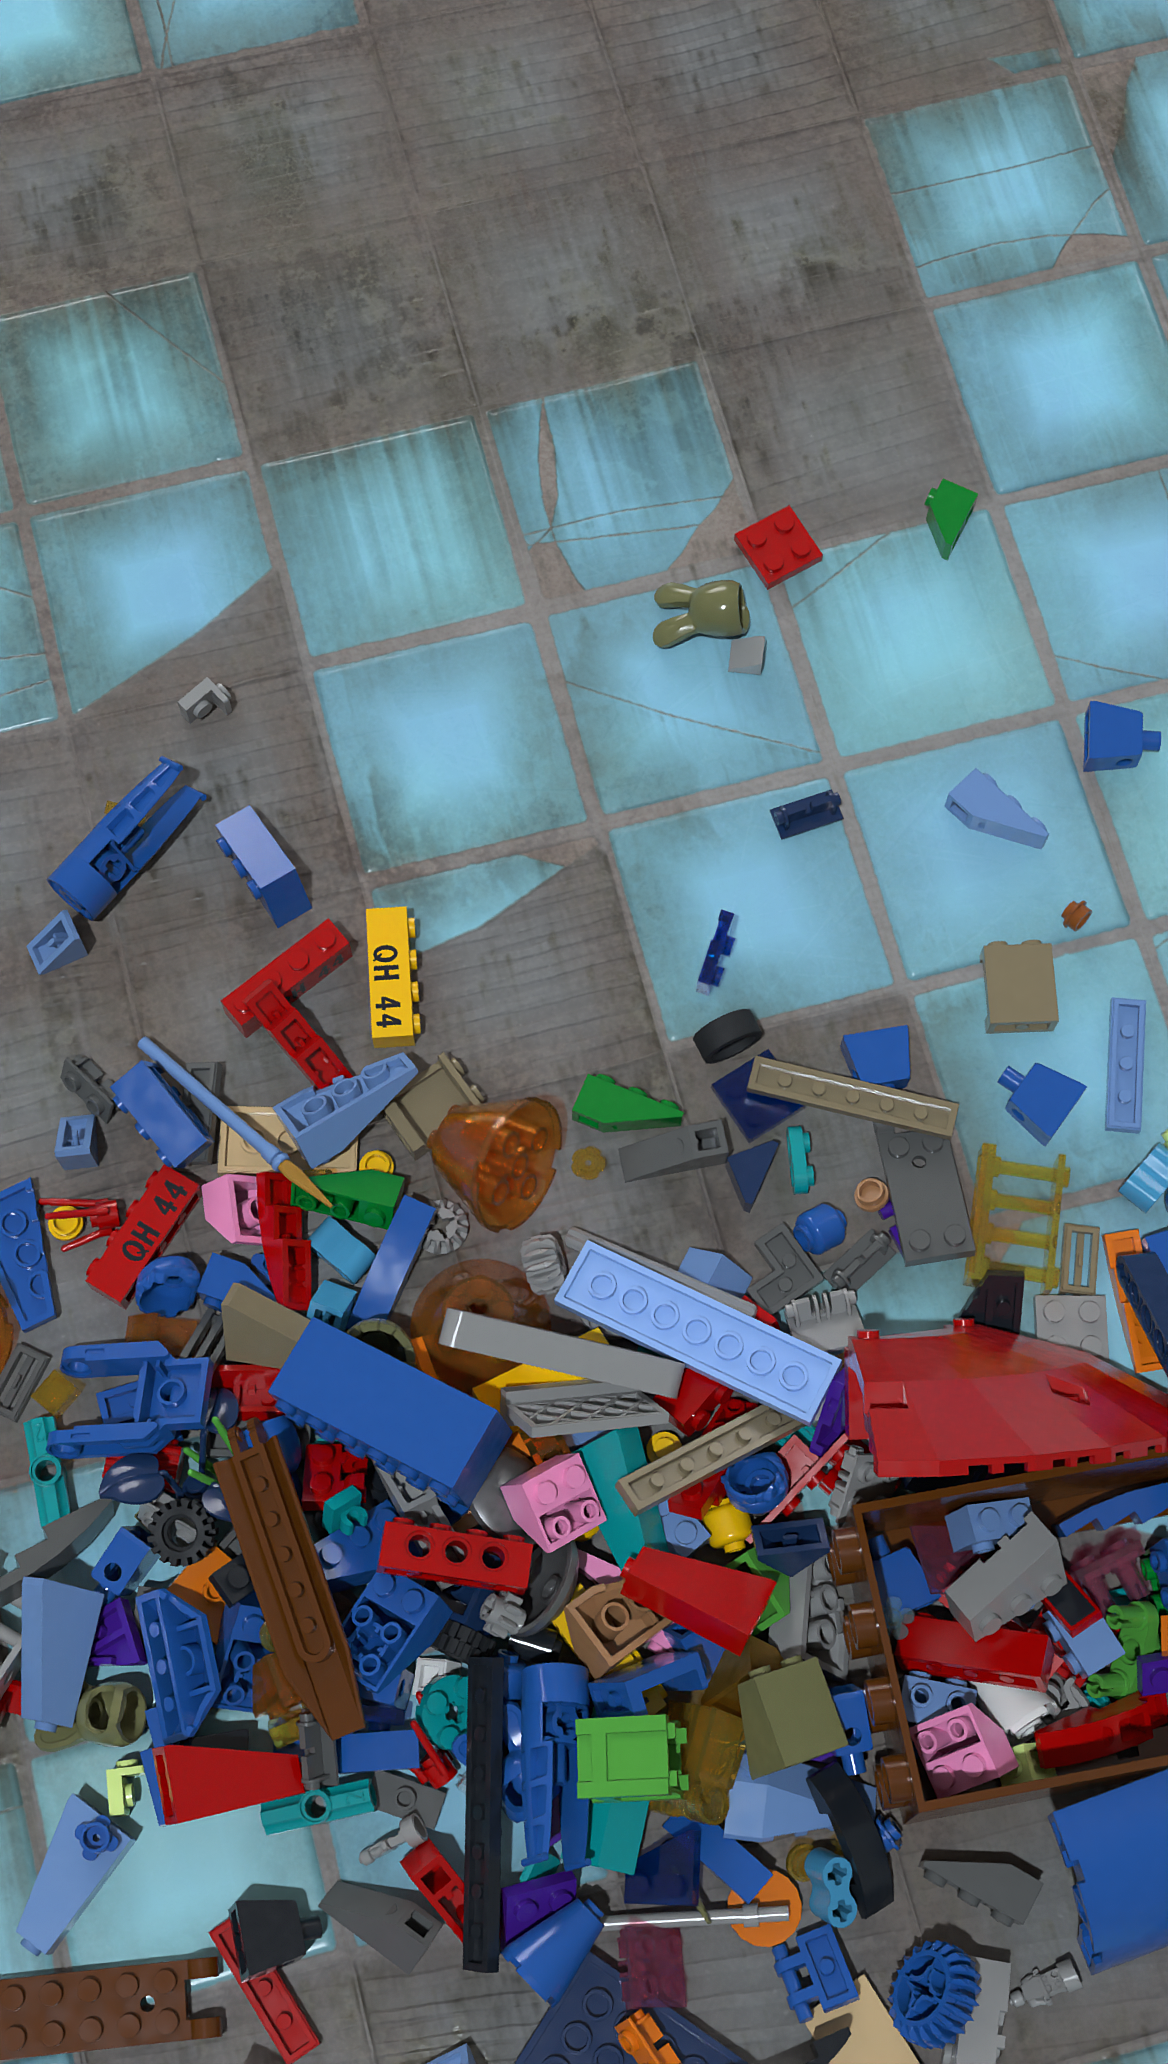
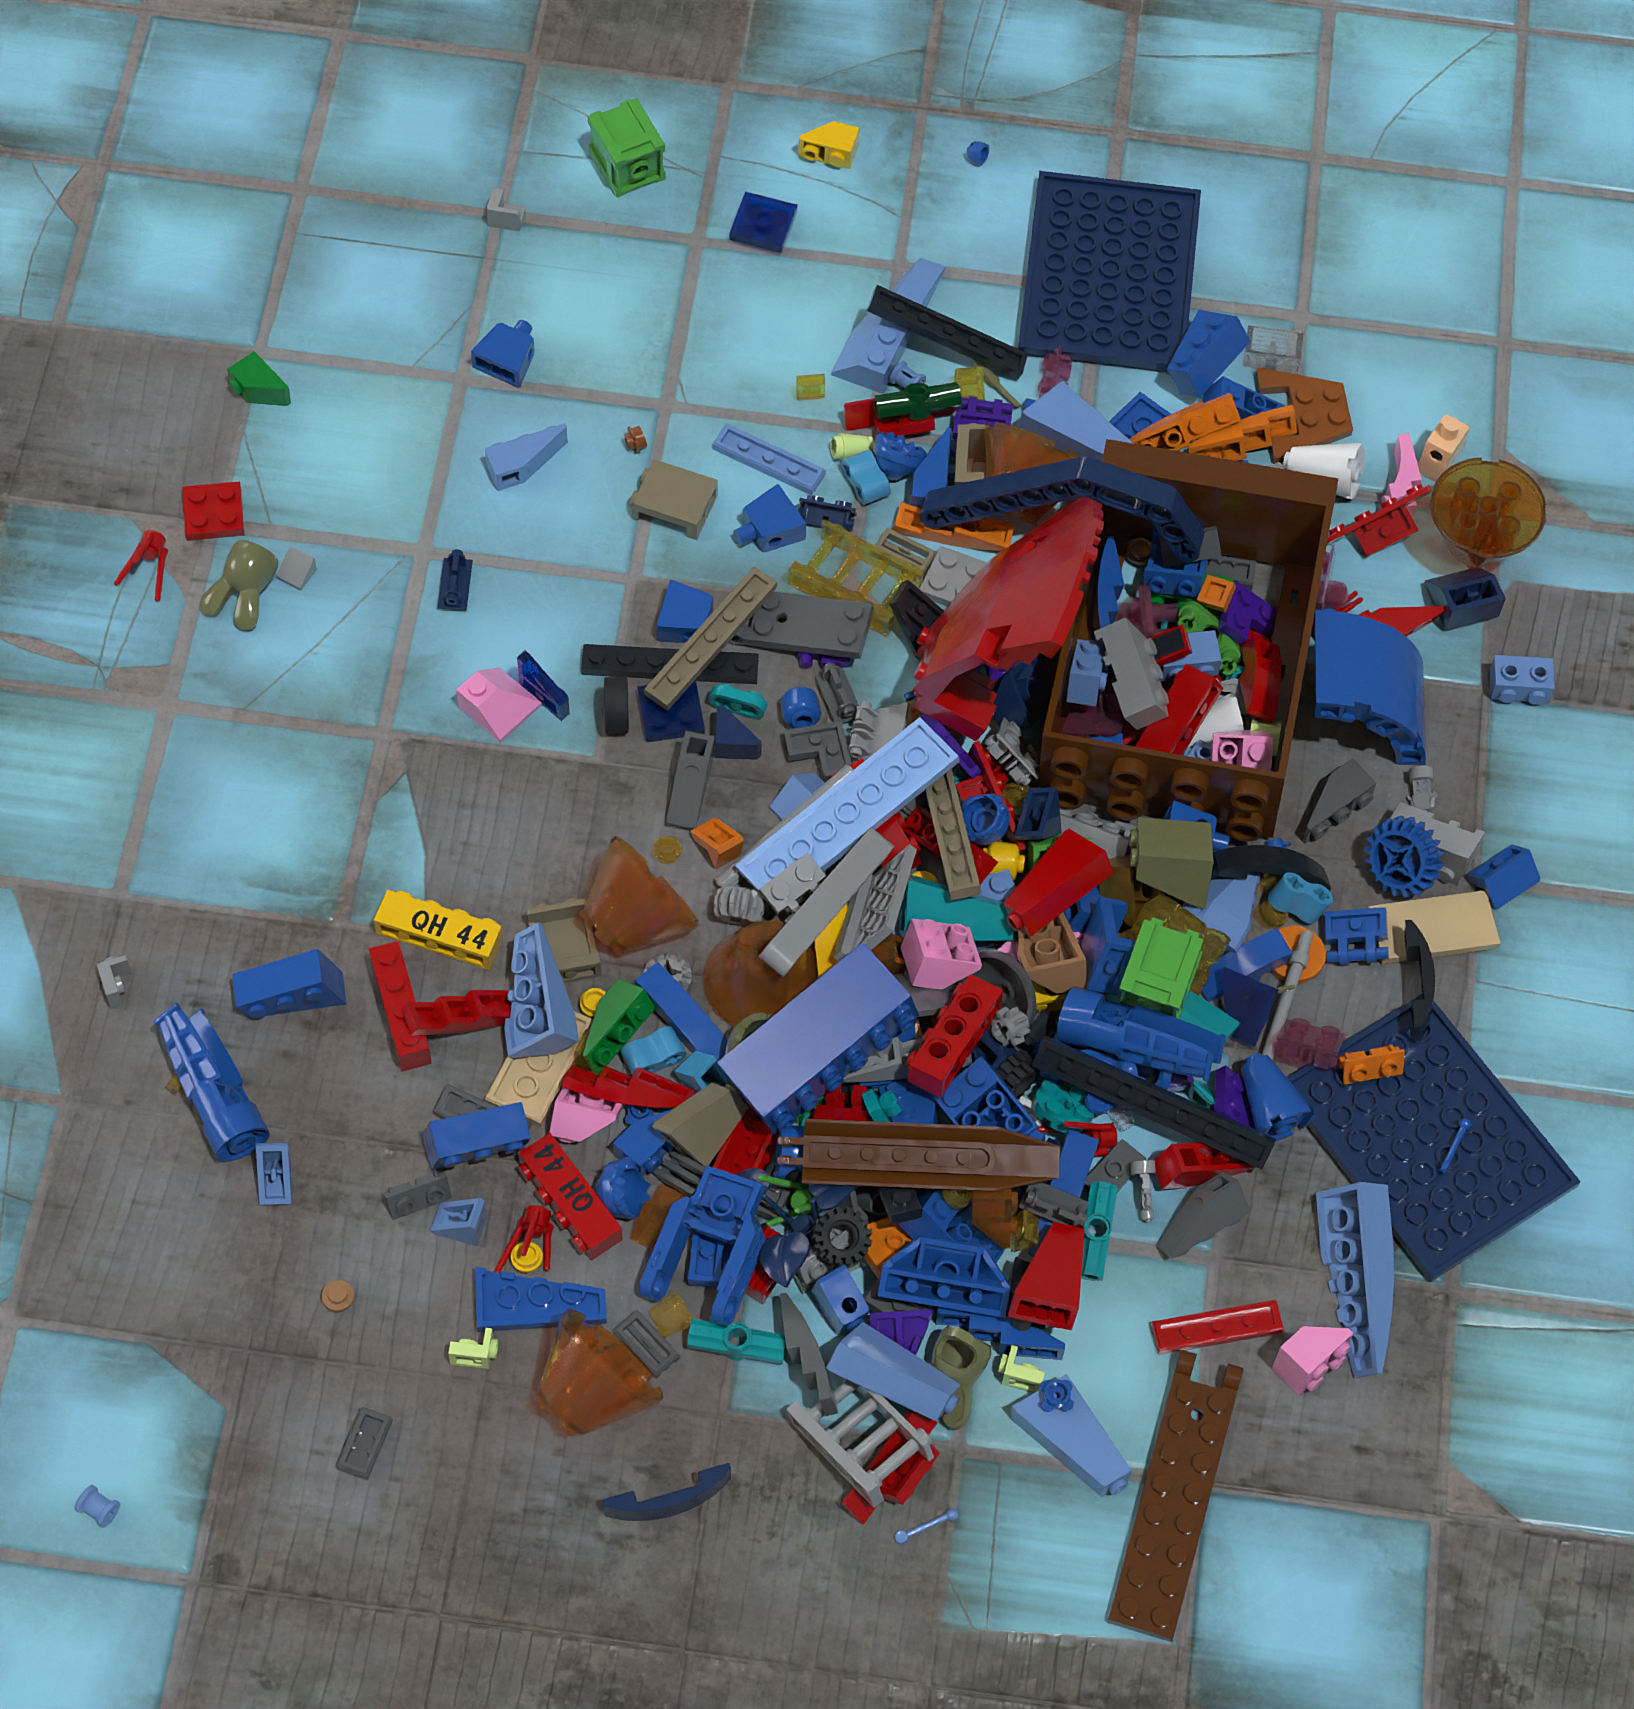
camera: 70 degrees left, 10 degrees down
(269, 1935) = (1181, 1301): black torso -> none
(270, 1153) = (551, 1064): medium blue piece -> none
(581, 1308) = (792, 884): none -> light grey plate
(616, 1209) = (719, 840): none -> orange slope
(617, 1109) = (633, 808): green slope -> none
(683, 916) = (496, 702): none -> bright pink slope
(702, 508) = (148, 548): none -> red plant
(807, 1050) = (648, 662): none -> black plate
(819, 1507) = (1015, 793): none -> clear yellow plate
(871, 1195) = (789, 664): medium nougat plate -> none
(1082, 1141) = (816, 509): none -> dark blue hinge

